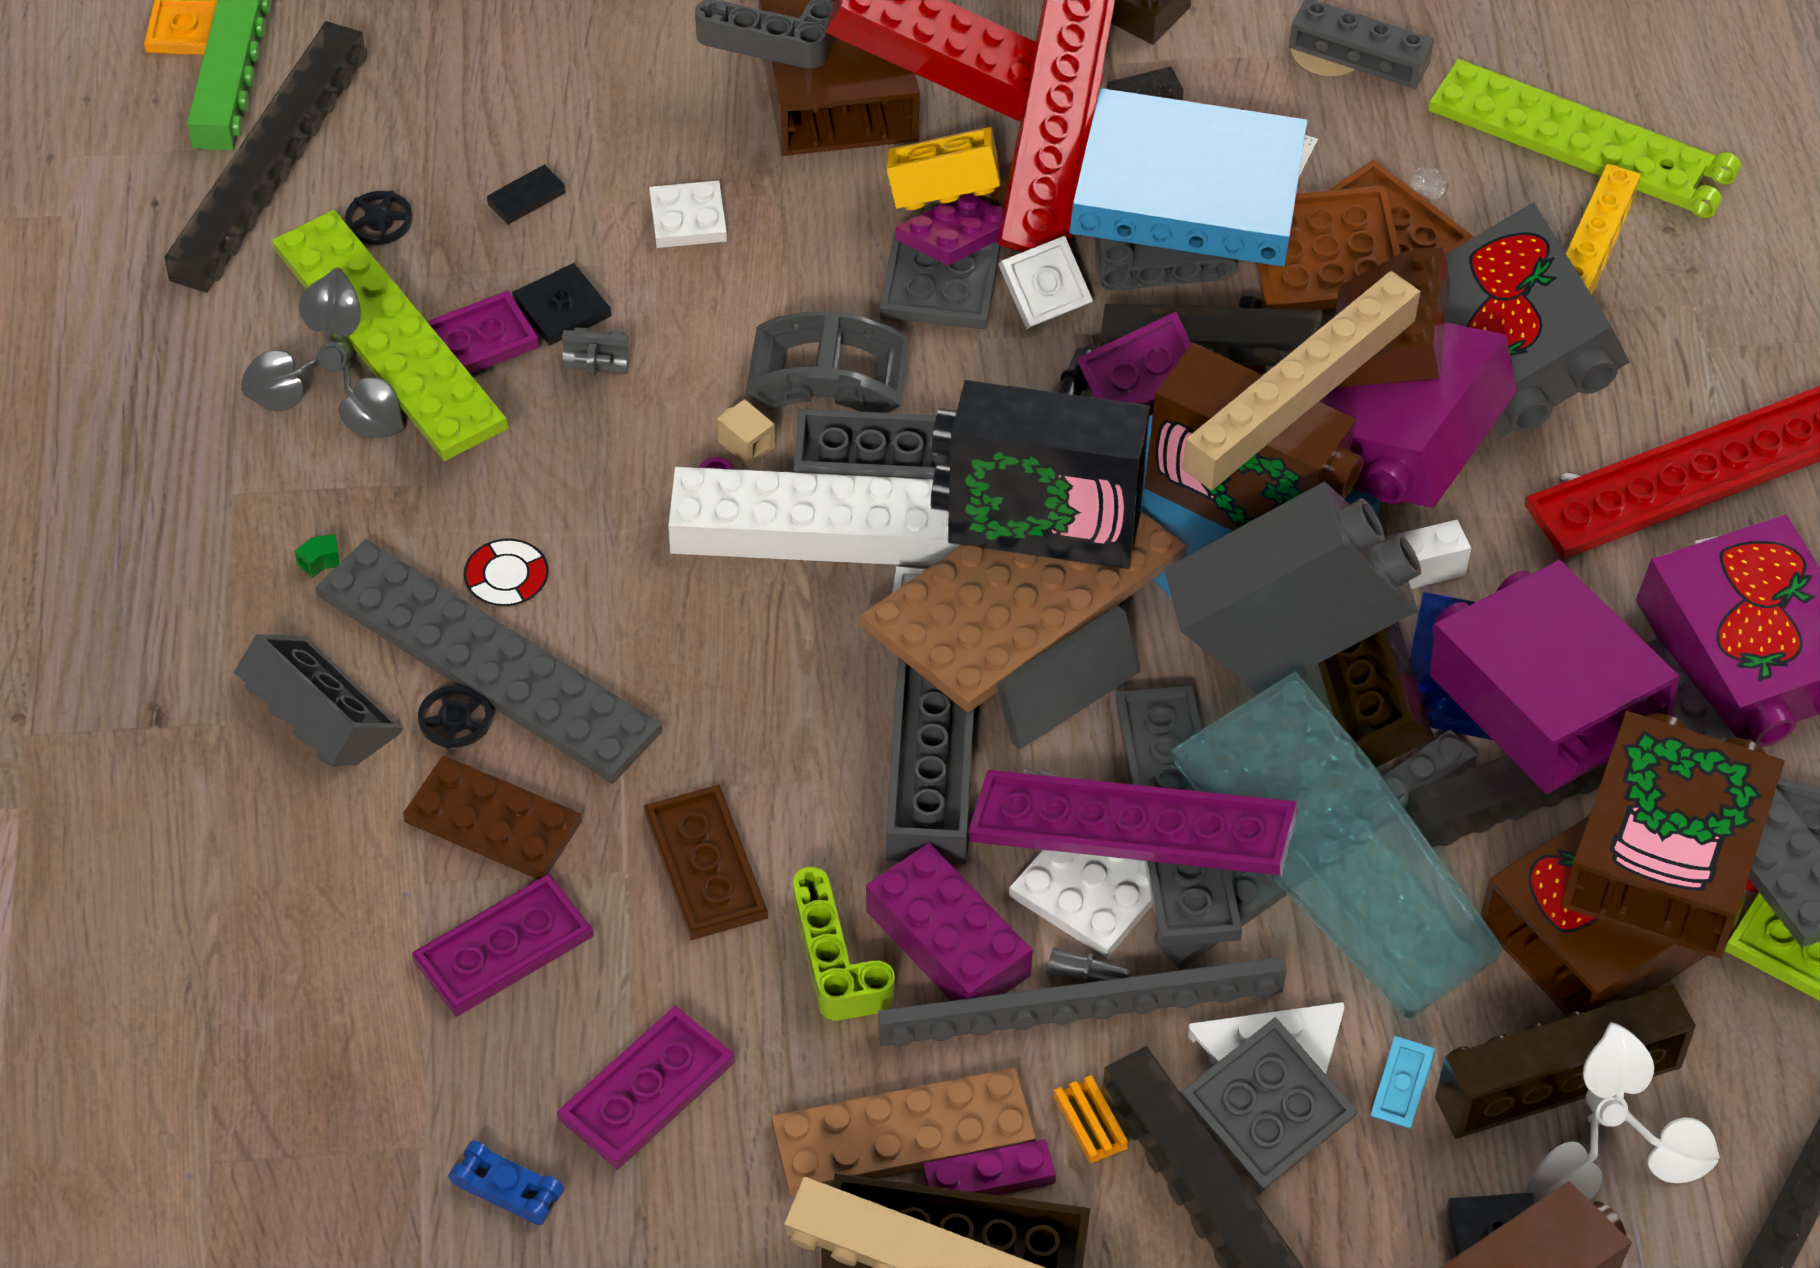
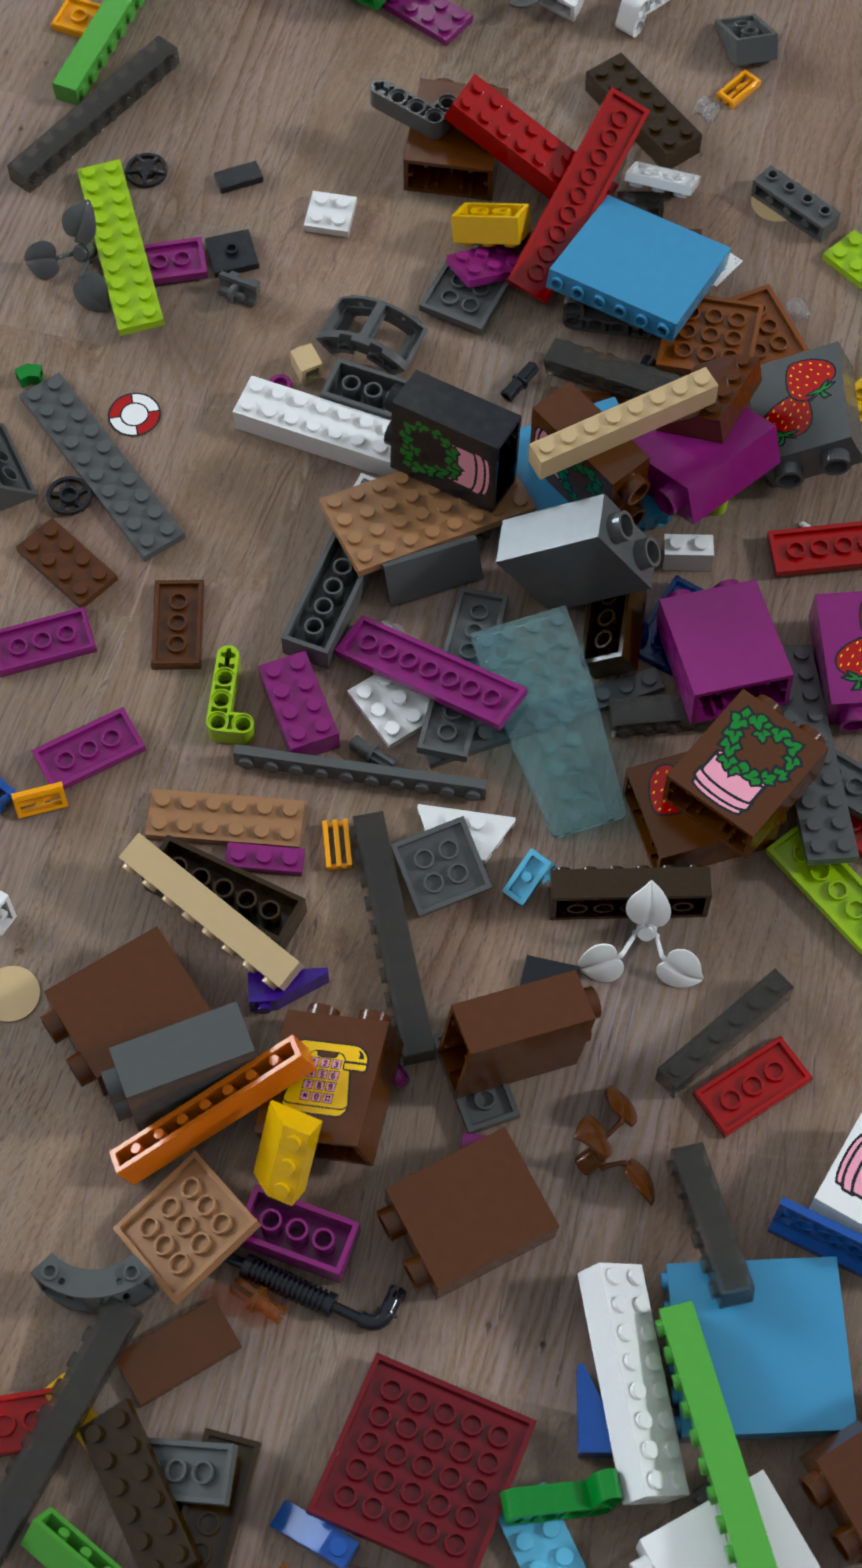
camera: 20 degrees right, 10 degrees up
(599, 1178) = (38, 797): none -> light orange tile
(1045, 282) = (526, 313): white plate -> none
(1136, 363) = (547, 378): magenta plate -> none
(1163, 51) = (662, 179): none -> white plate

